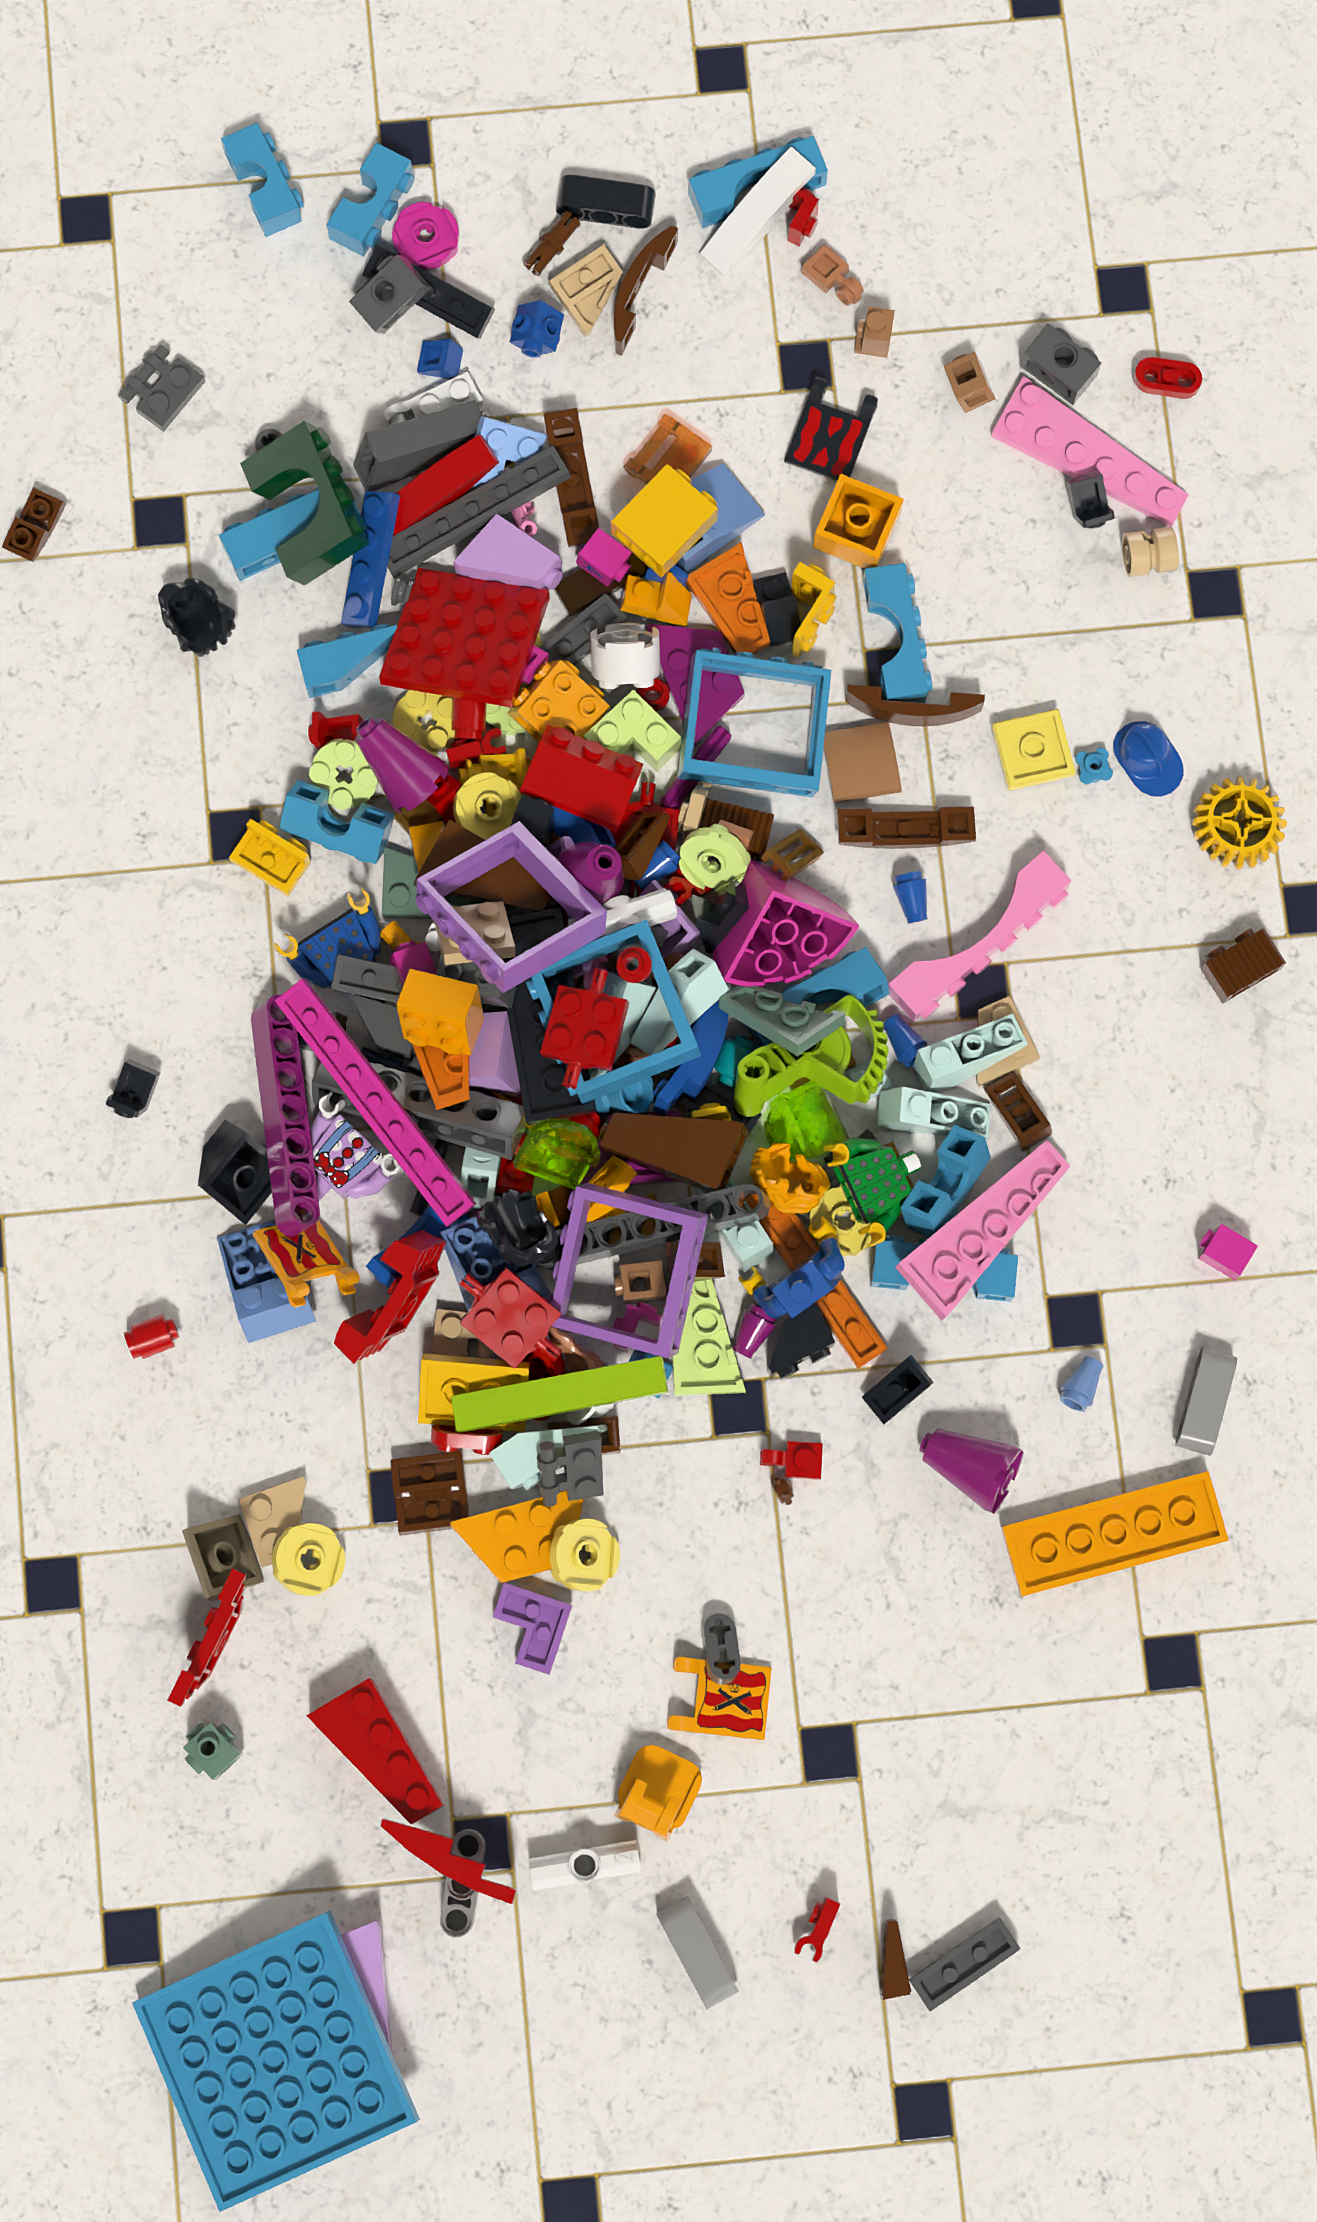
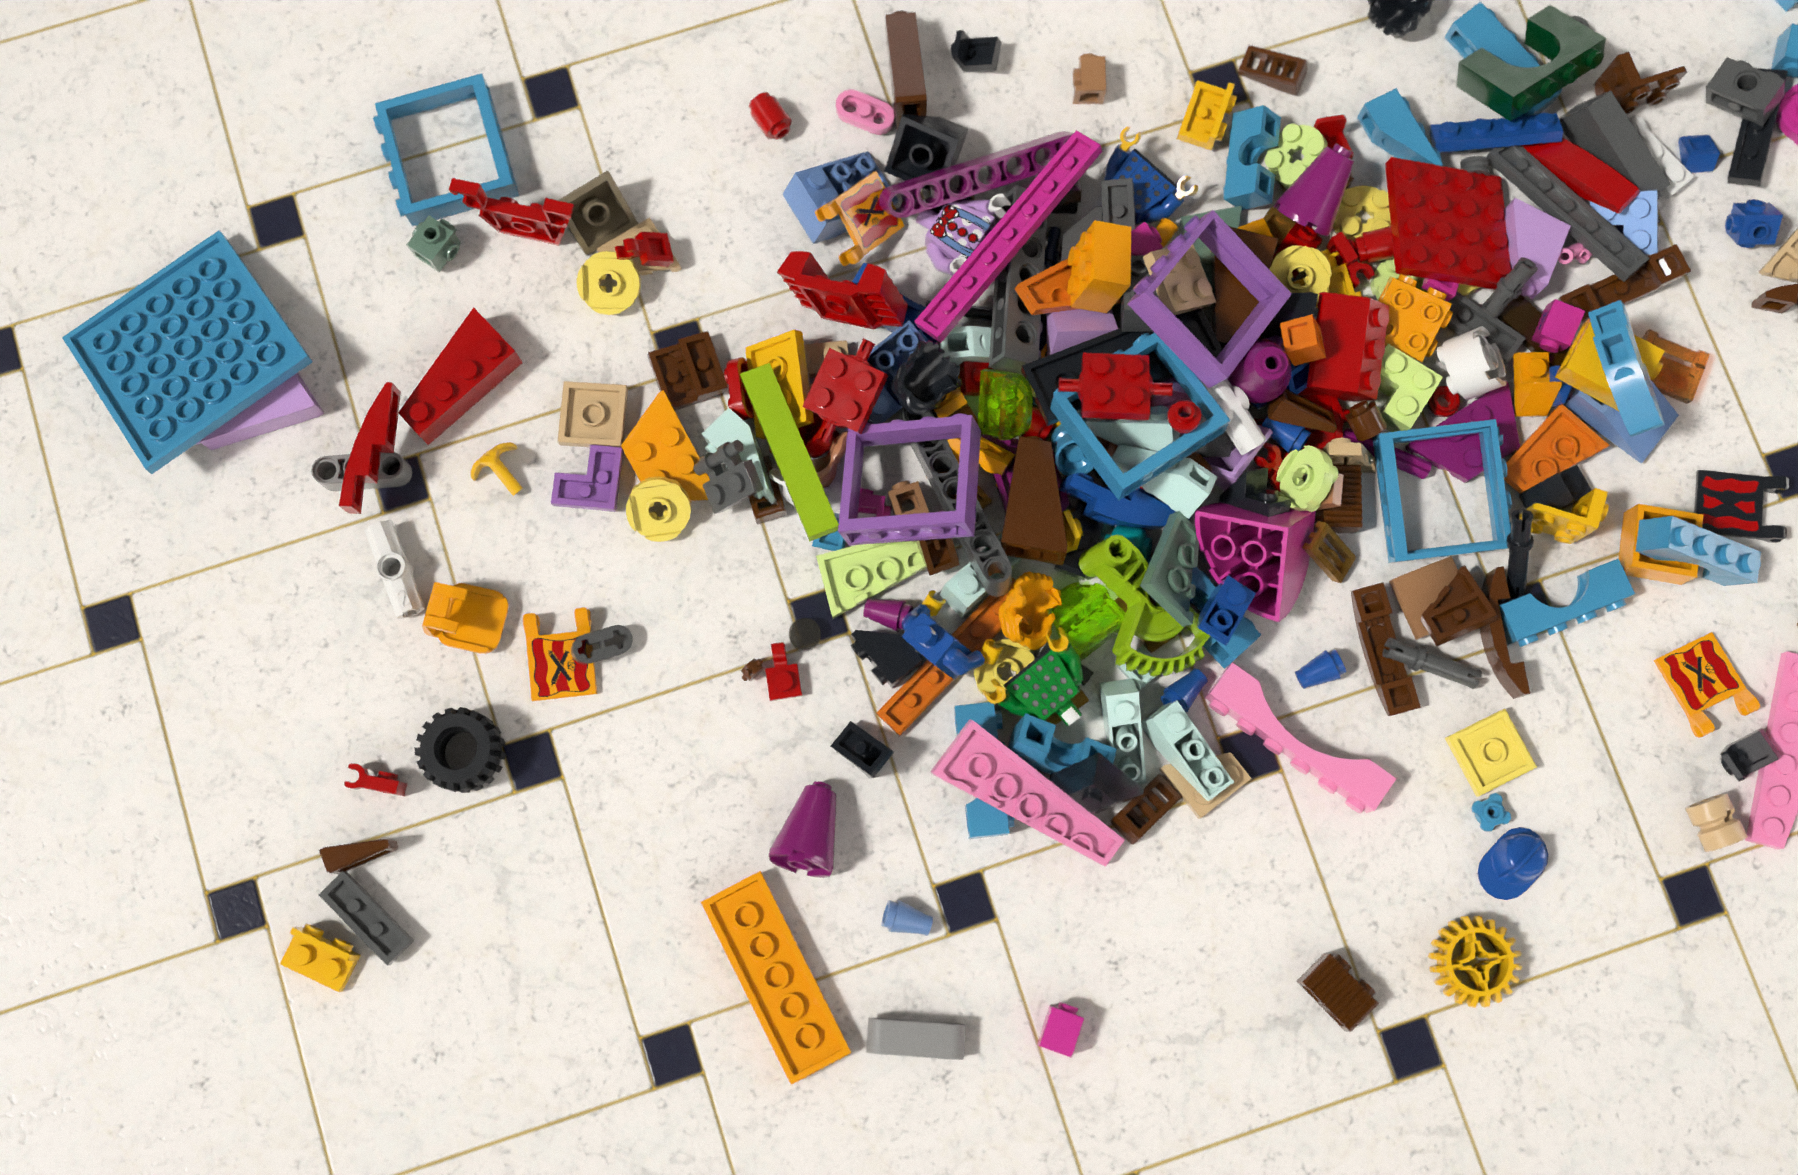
camera: 80 degrees right, 0 degrees up
(118, 1778) = (431, 98): none -> dark azure window
(134, 1171) = (905, 65): none -> reddish brown slope
(169, 1228) = (867, 111): none -> bright pink plate
(197, 972) = (1089, 80): none -> medium nougat brick
(243, 780) = (1279, 82): none -> reddish brown slope
(283, 1501) = (651, 247): none -> red plate
(354, 418) = (1631, 90): none -> reddish brown bracket
(457, 1608) = (592, 414): none -> tan plate
(485, 1729) = (492, 460): none -> yellow plant
(552, 595) = (1509, 287): none -> dark grey pin
(572, 823) = (1302, 340): none -> orange brick
(663, 780) = (1365, 420): none -> reddish brown plate
(682, 511) = (1624, 369): none -> dark azure slope
(697, 1952) = (337, 681): light grey beam -> none
(756, 1426) = (805, 634): none -> clear smoke tile
(832, 663) = (1519, 544): none -> black pin
(838, 977) = (1225, 609): none -> blue slope
(838, 1825) = (434, 744): none -> black tyre
(876, 489) = (1678, 540): none -> dark azure arch
(883, 742) = (1458, 609): none -> reddish brown wing
(922, 795) = (1419, 658): none -> dark grey pin
(990, 1153) = (1096, 784): none -> black slope
(996, 2023) = (320, 958): none -> yellow bracket
(1000, 520) = (1701, 678): none -> flag

